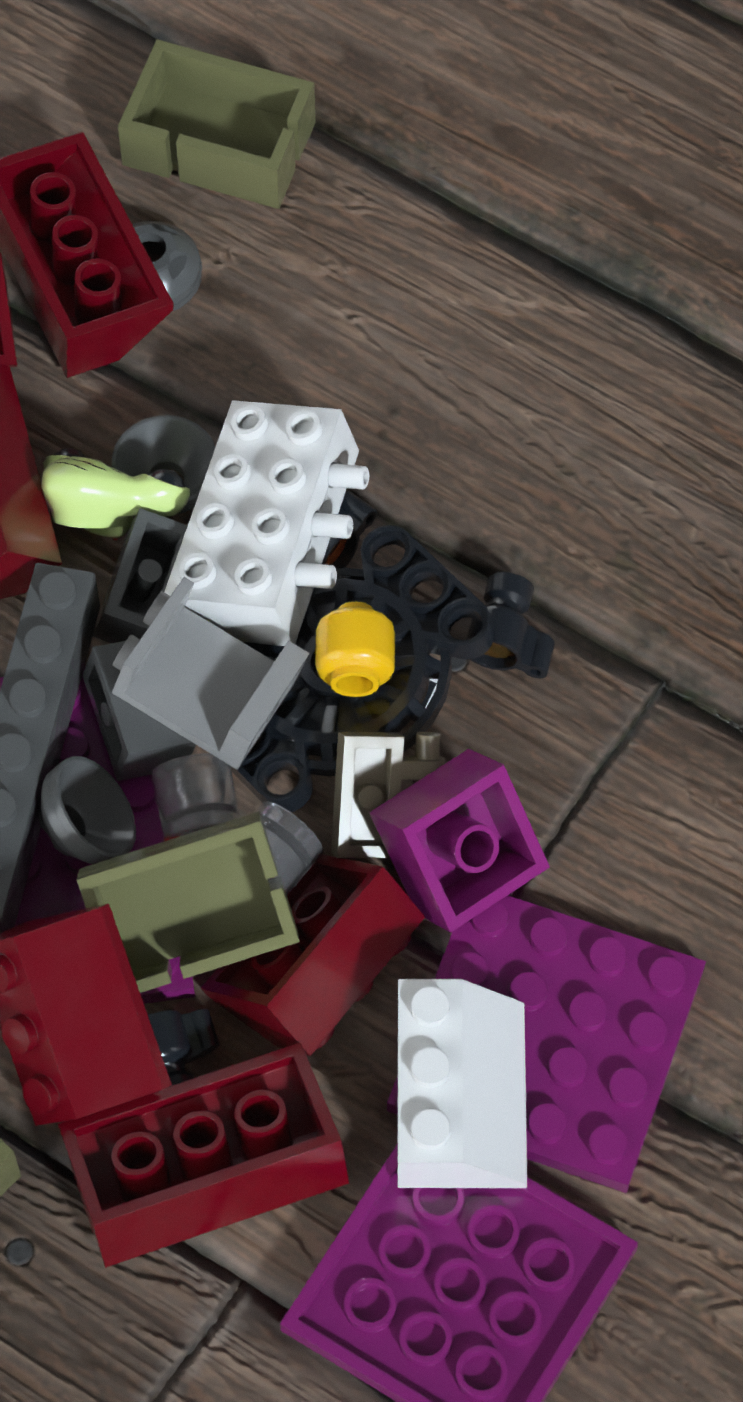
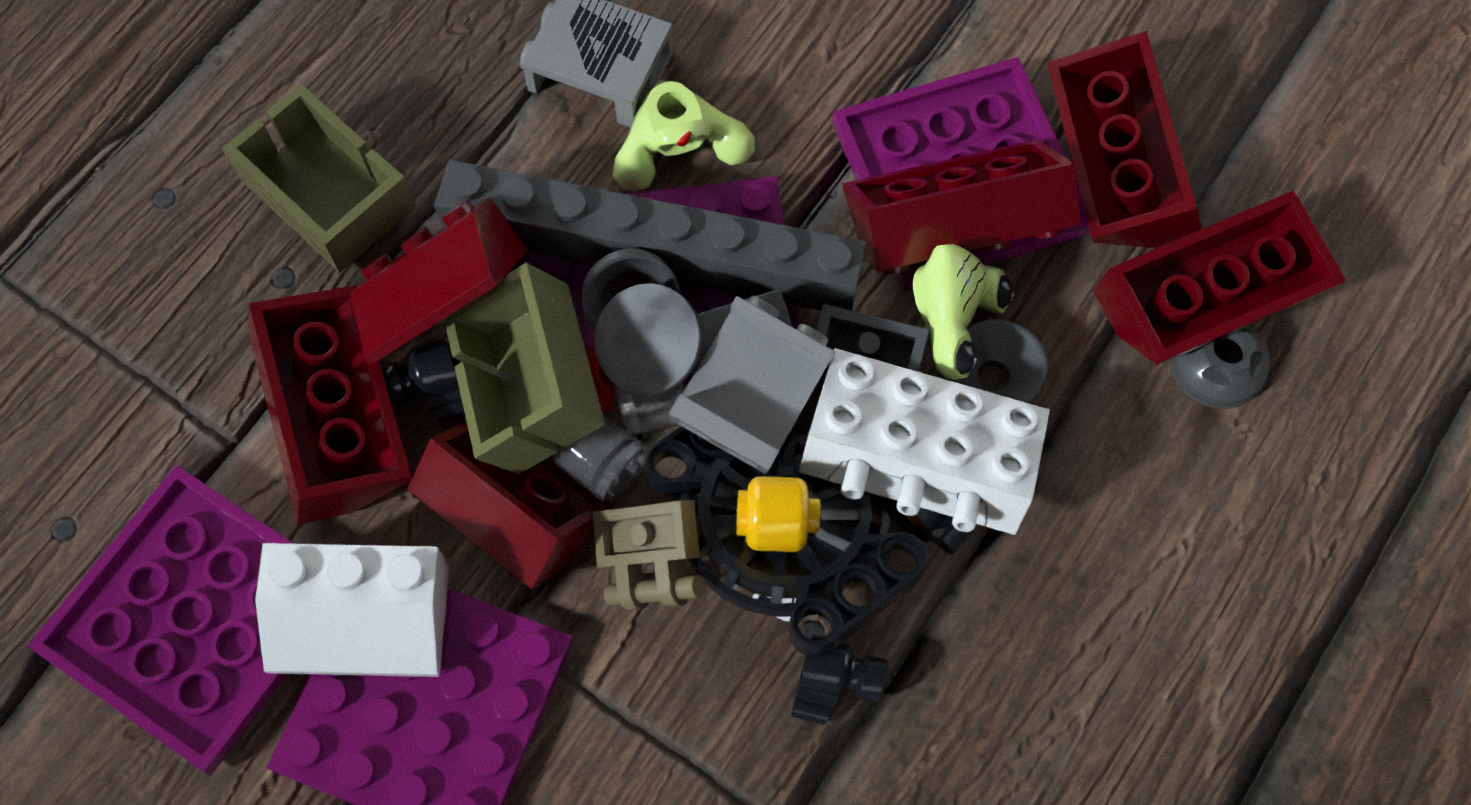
camera: 90 degrees right, 5 degrees up
(151, 780) = (648, 339): none -> flat silver shield
(217, 123) = (1381, 408): olive piece -> none
(460, 839) = (592, 614): magenta brick -> none

